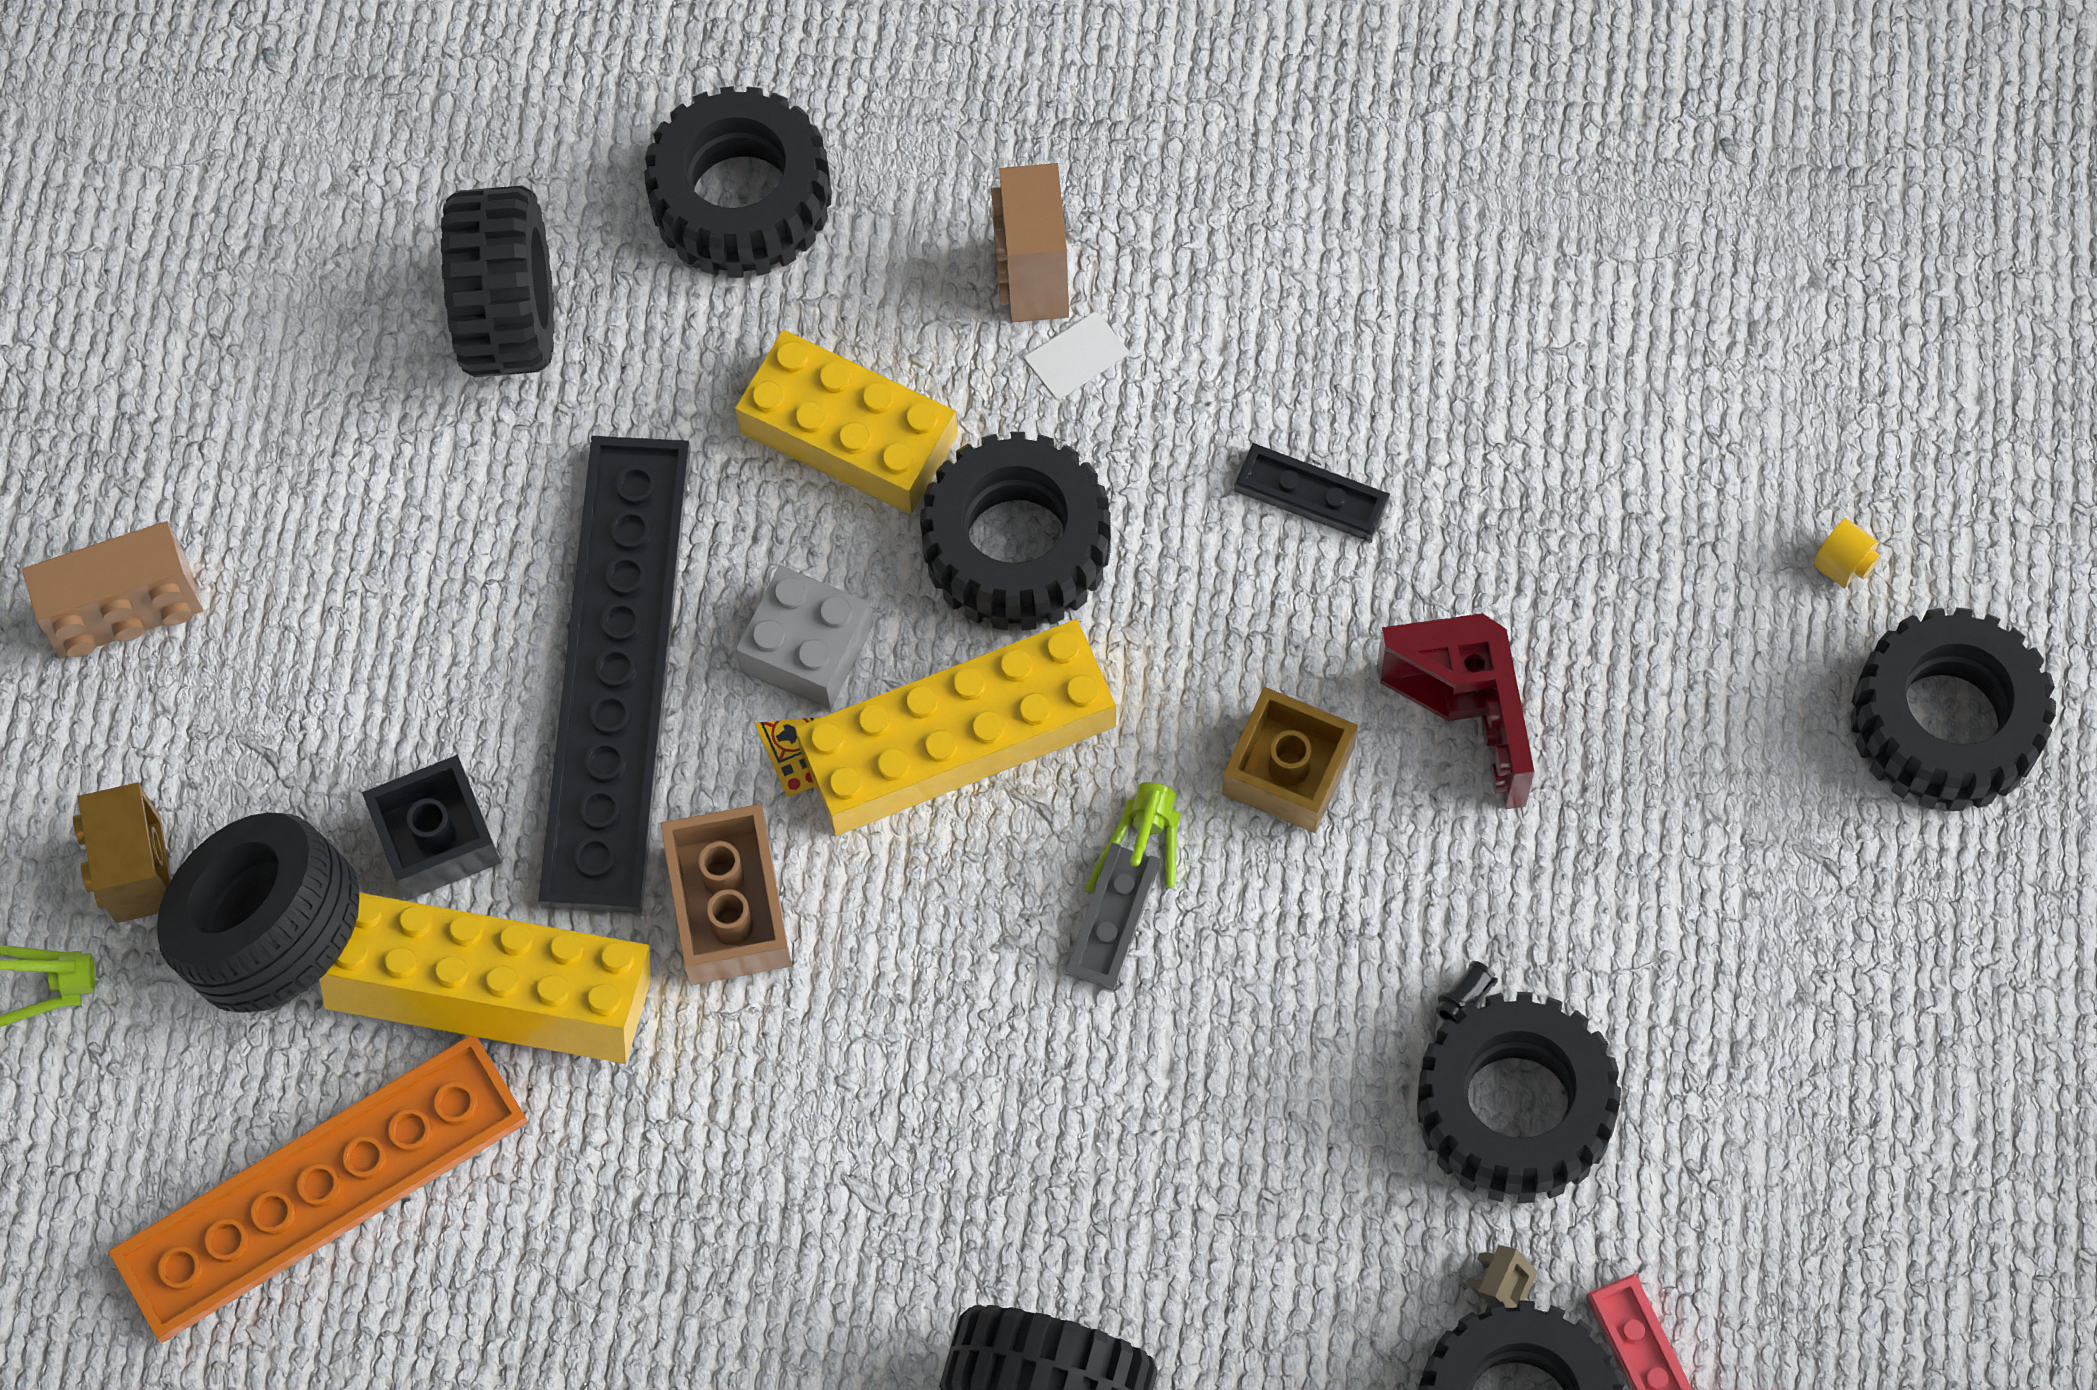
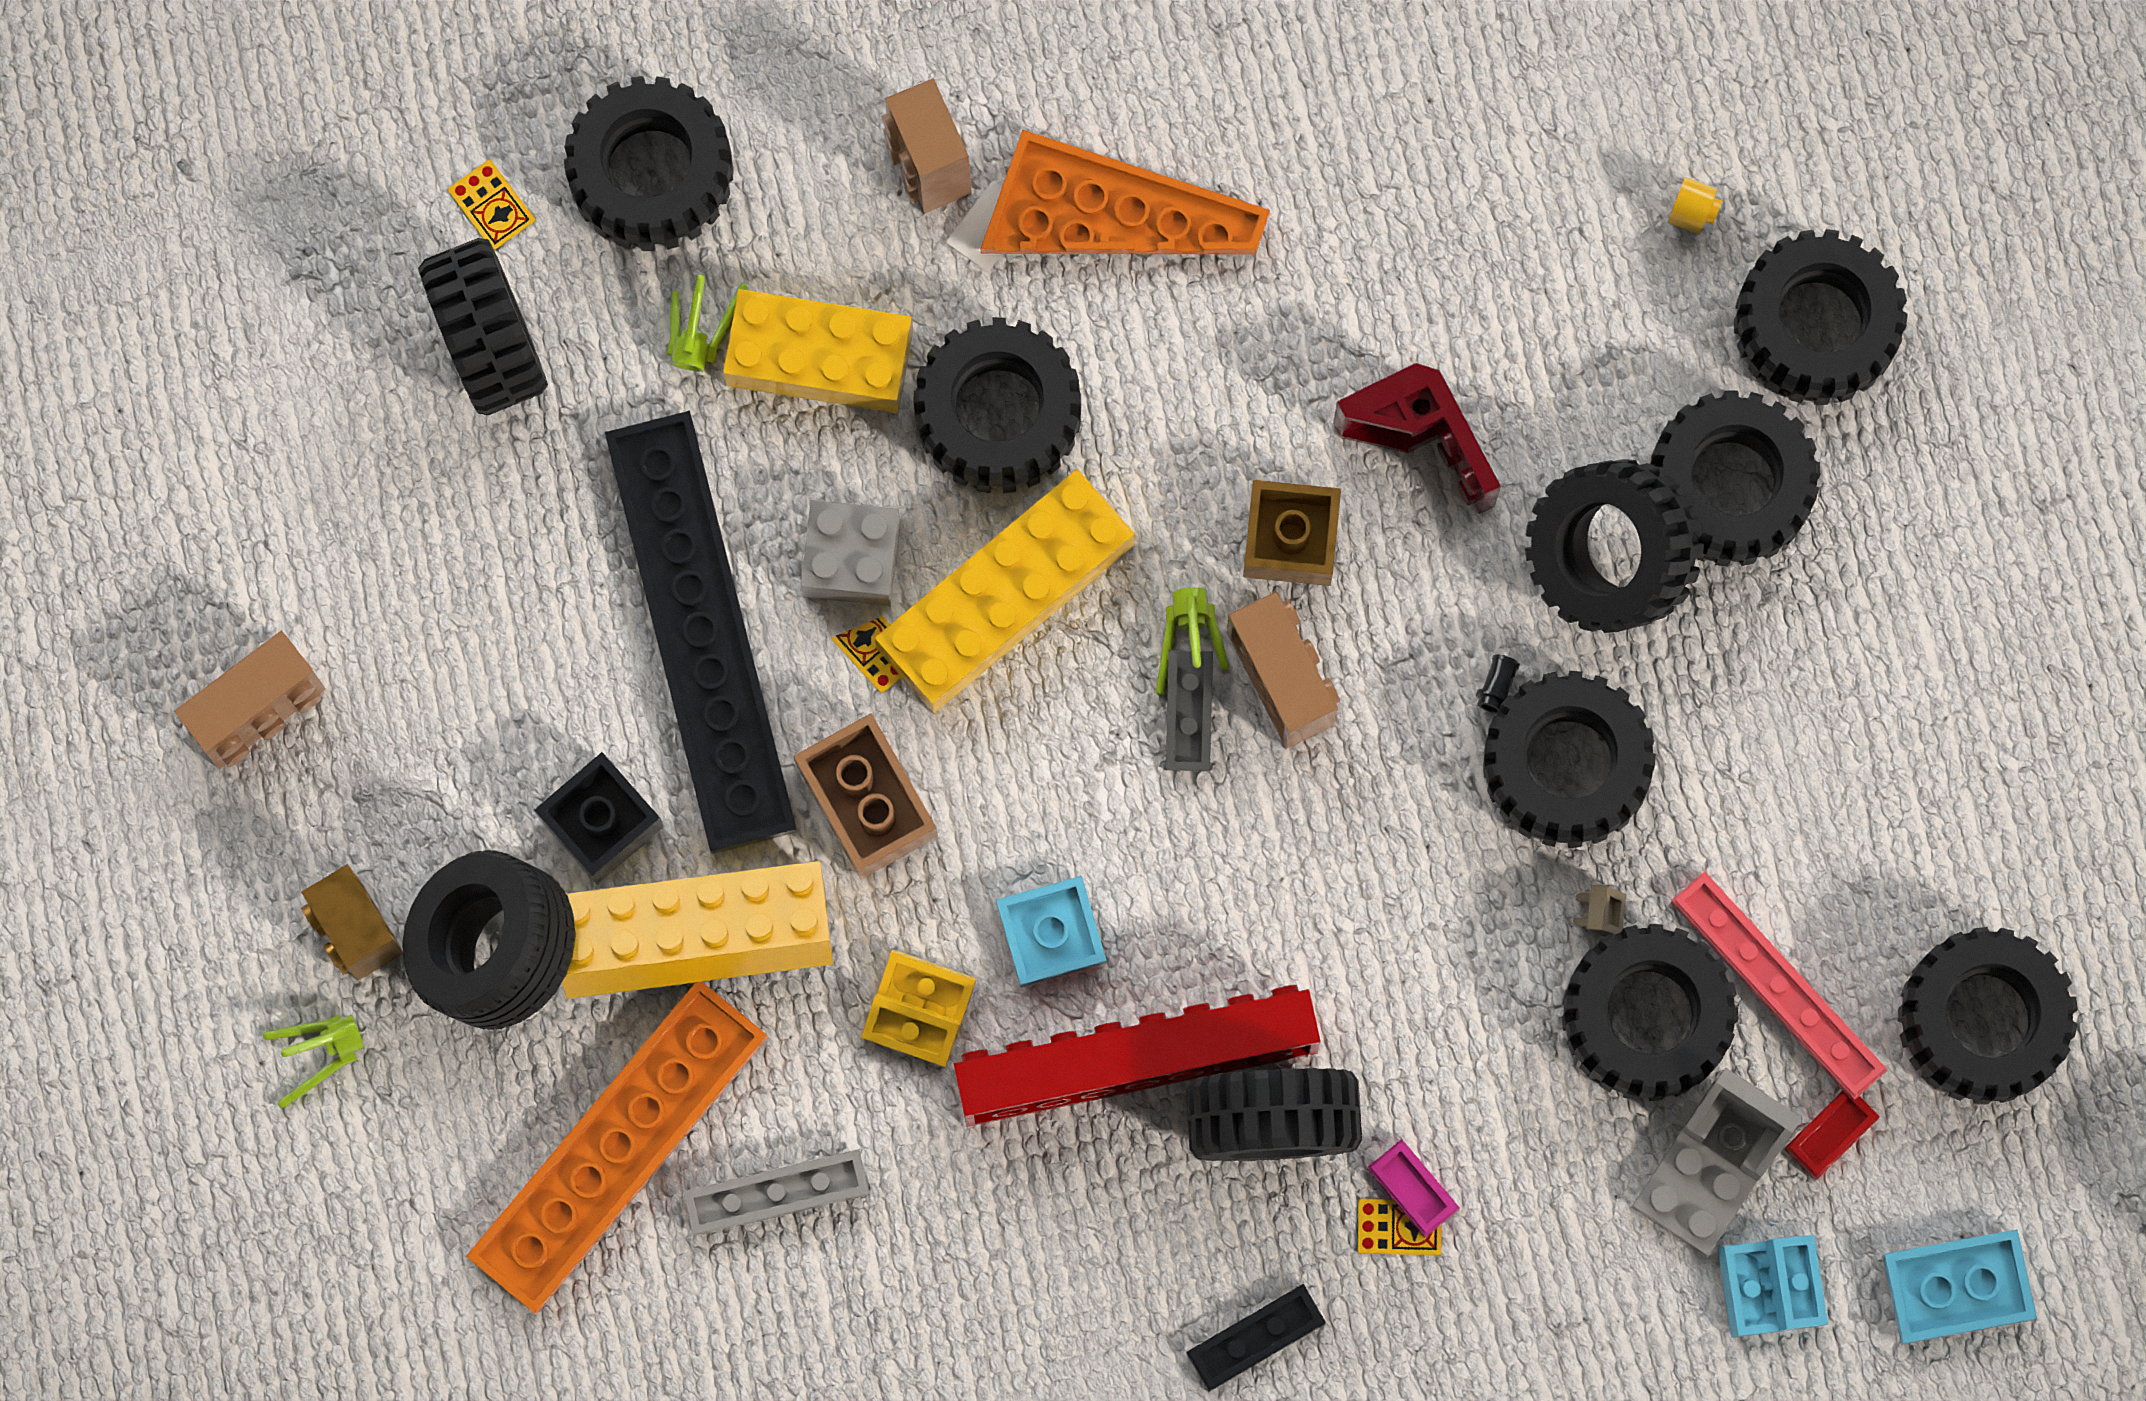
camera: 20 degrees left, 10 degrees up
(472, 1294) = (776, 1193): none -> light grey plate
(565, 182) = (491, 204): none -> yellow sticker
(704, 1143) = (919, 1008): none -> yellow slope
(714, 378) = (690, 348): none -> lime plant
(877, 1106) = (1051, 931): none -> medium azure plate
(913, 1267) = (1137, 1056): none -> red brick
(1193, 362) = (1092, 204): none -> orange wing
(1231, 899) = (1283, 669): none -> medium nougat brick
(1312, 492) = (1230, 288): black tile -> none
(1699, 886) = (1563, 557): none -> black tyre
(1814, 790) = (1775, 440): none -> black tyre

